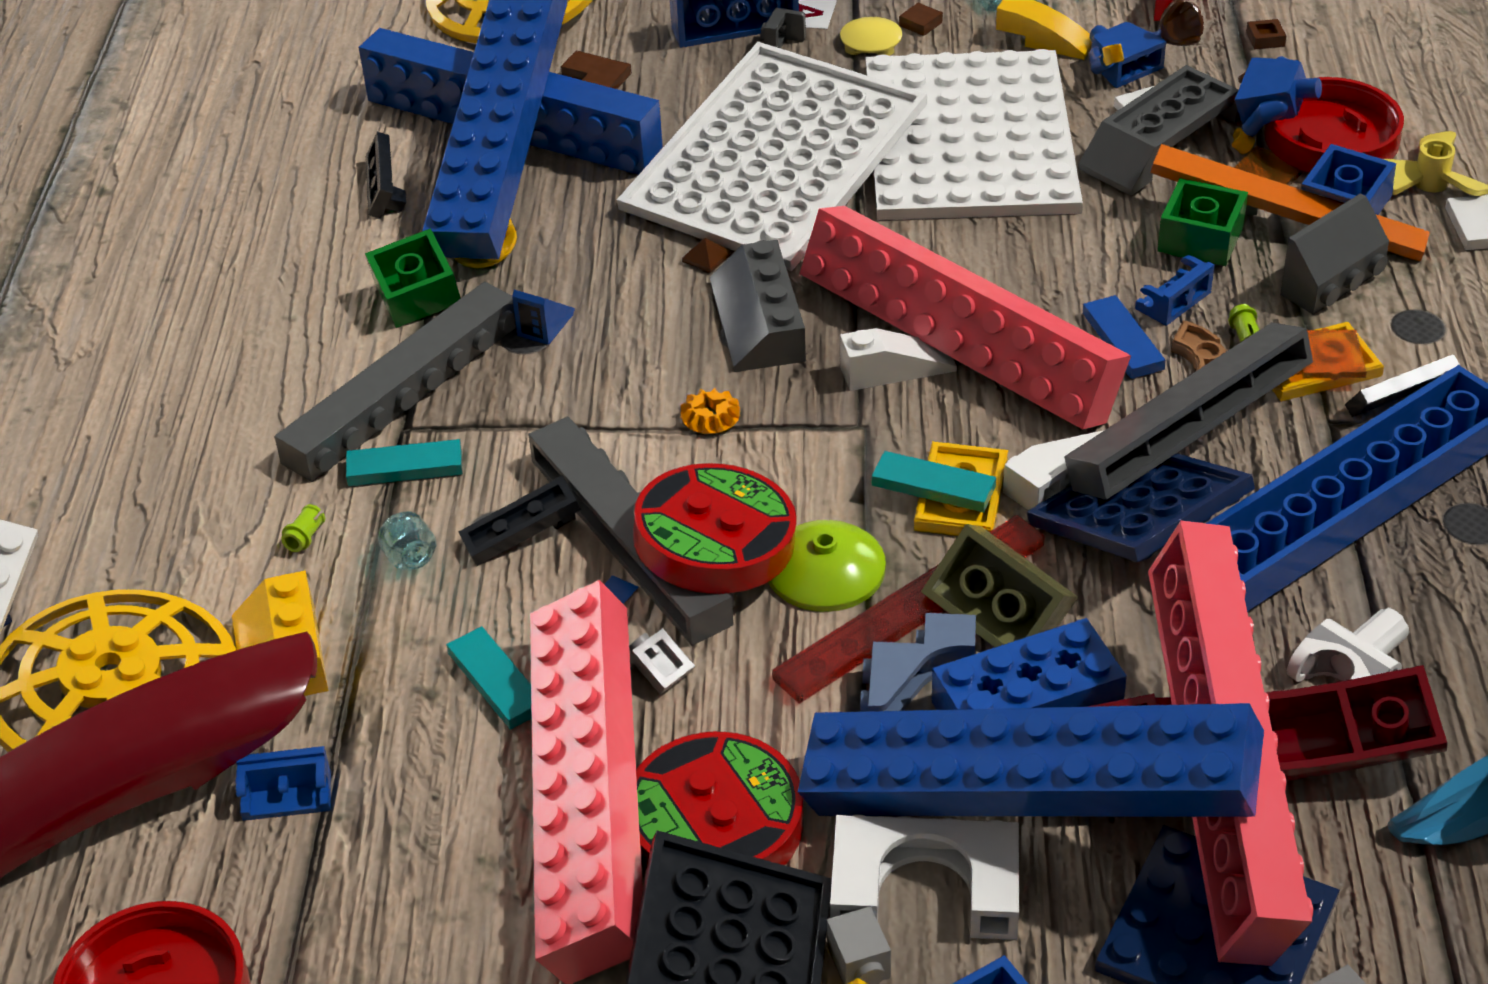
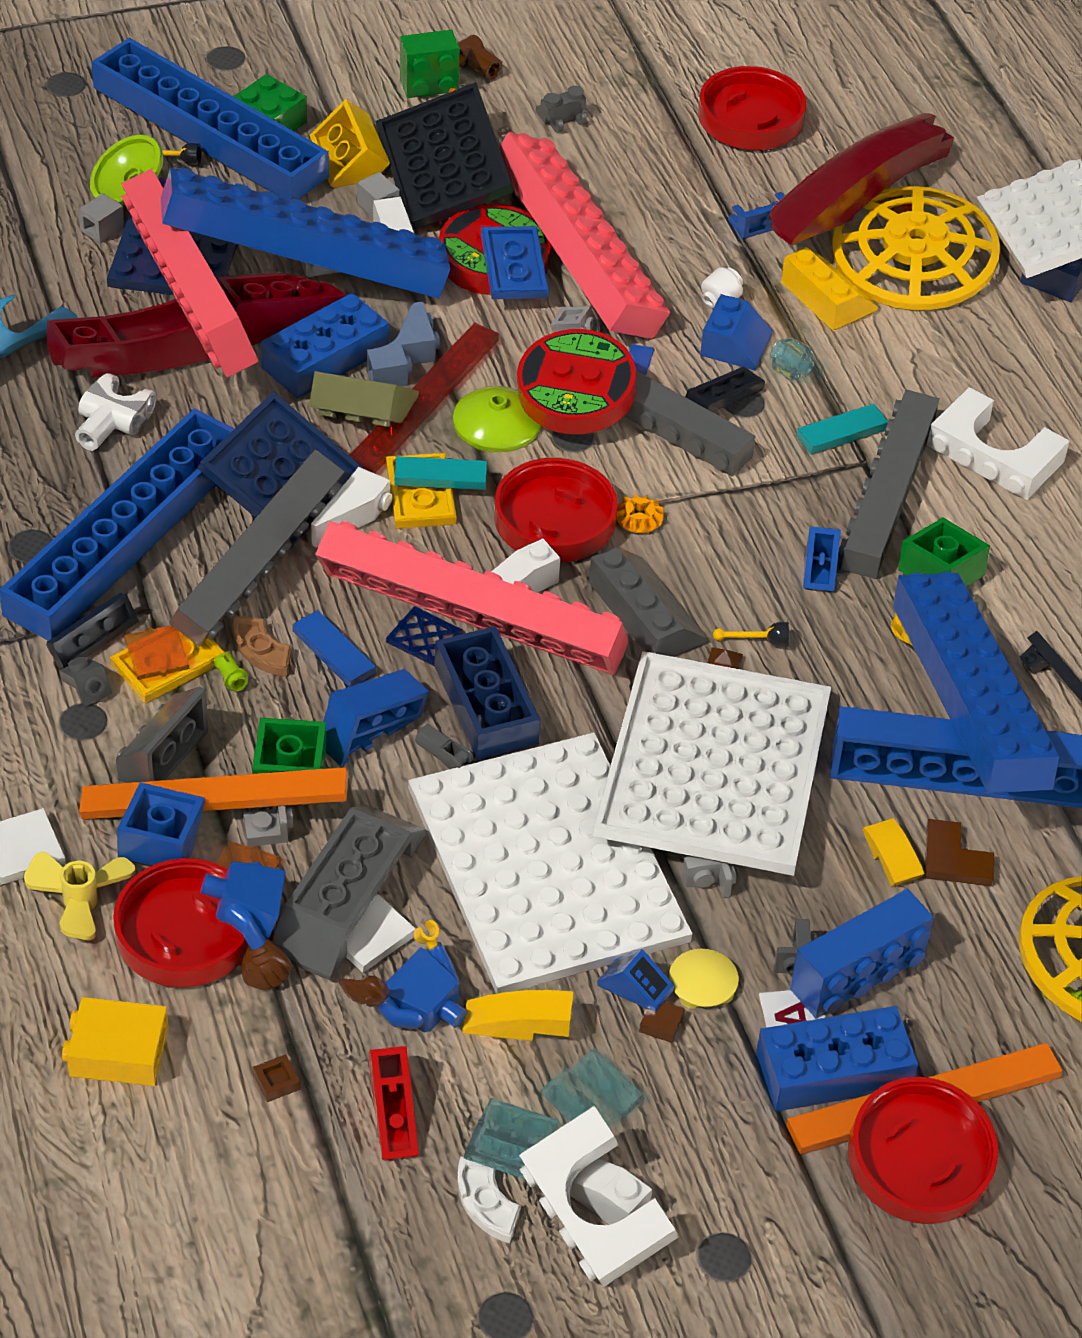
camera: 155 degrees right, 5 degrees up
(240, 365) = (1016, 470): none -> white arch
(299, 533) = (874, 358): lime pin -> none
(426, 666) = (721, 281): none -> white head
(458, 600) = (735, 333): none -> blue slope
(493, 676) = (682, 303): teal tile -> none
(635, 260) = (776, 634): none -> hinge
(650, 80) = (894, 850): none -> yellow slope
(706, 740) = (514, 262): none -> blue tile
(812, 416) = (556, 502): none -> red piece
(935, 32) = (637, 980): none -> blue slope
(978, 231) = (487, 693): none -> dark blue brick
(1036, 225) = (443, 747): none -> dark grey bar
(1104, 248) = (369, 710): none -> blue wedge
(1178, 293) = (300, 692): blue hinge -> none
(1407, 63) = (116, 1041): none -> yellow brick
(1414, 345) = (87, 678): none -> dark grey bracket

